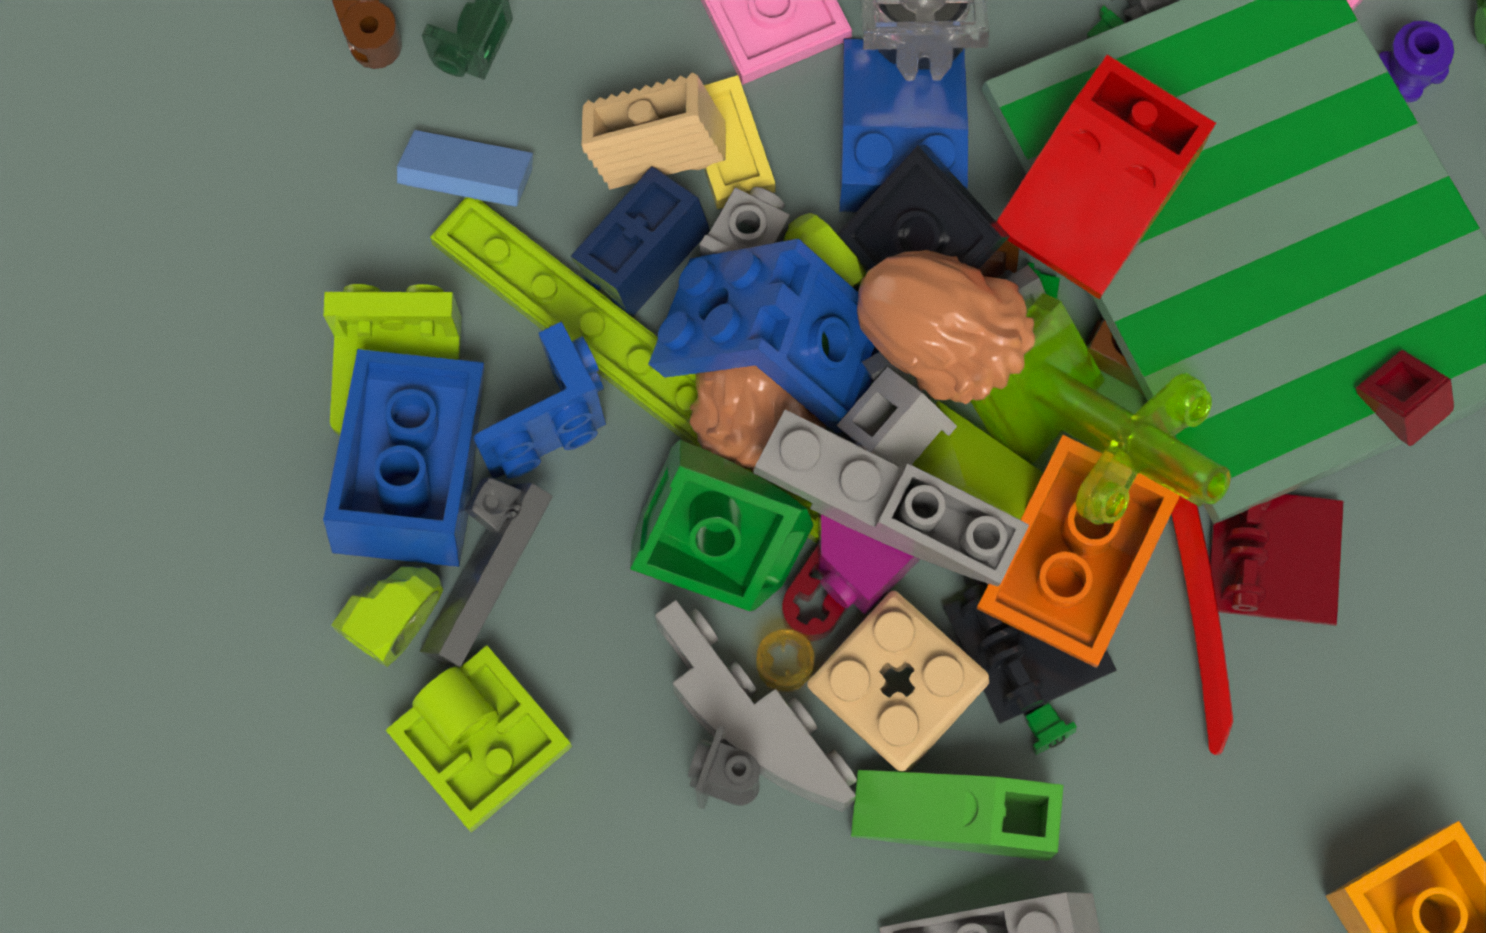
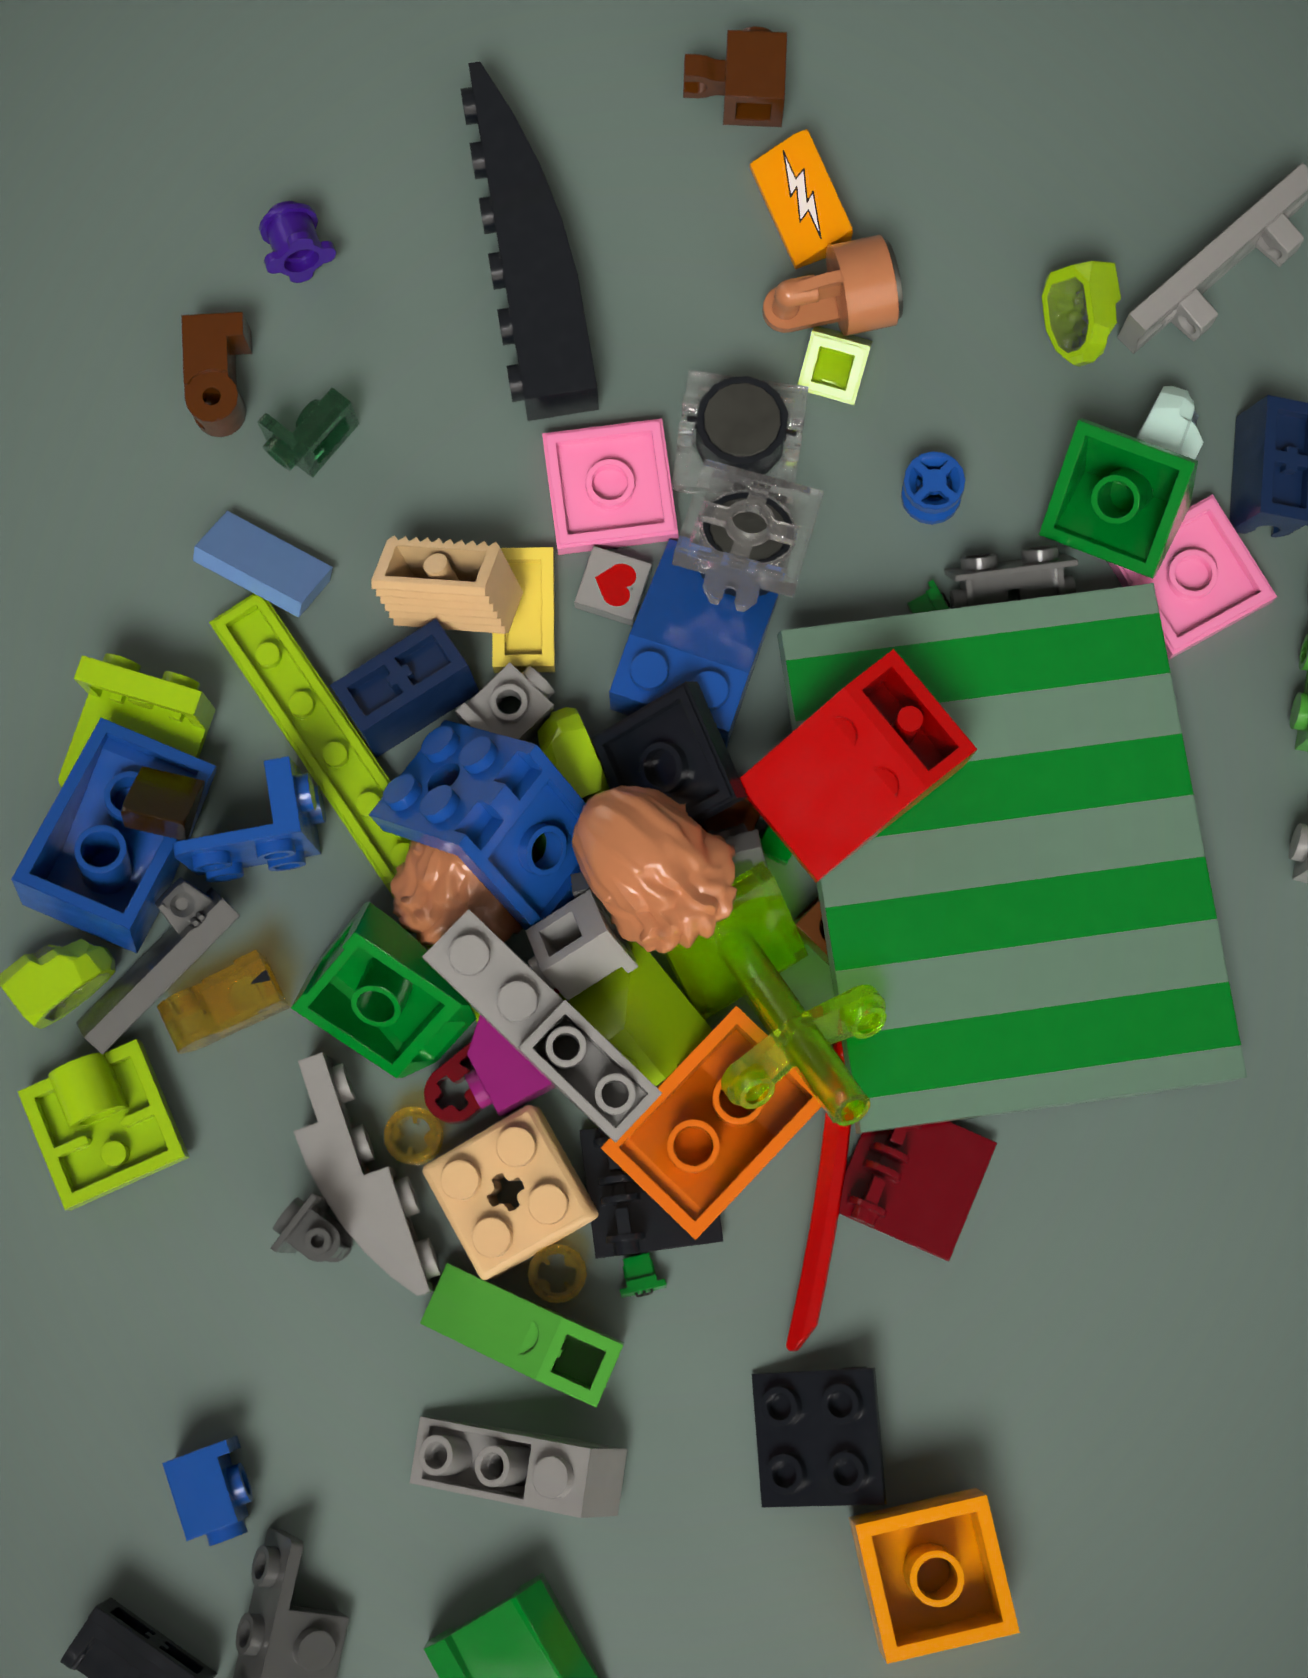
camera: 15 degrees right, 5 degrees up
(447, 408) = (162, 803): none -> dark brown slope
(560, 588) = (223, 1003): none -> clear yellow leg
(805, 96) = (613, 585): none -> light grey tile
(977, 731) = (543, 1287): none -> clear yellow bush
(1273, 826) = (819, 1438): none -> black hinge
(1408, 396) = (1084, 1067): dark red slope -> none
(1418, 58) = (1210, 735): dark purple brick -> none

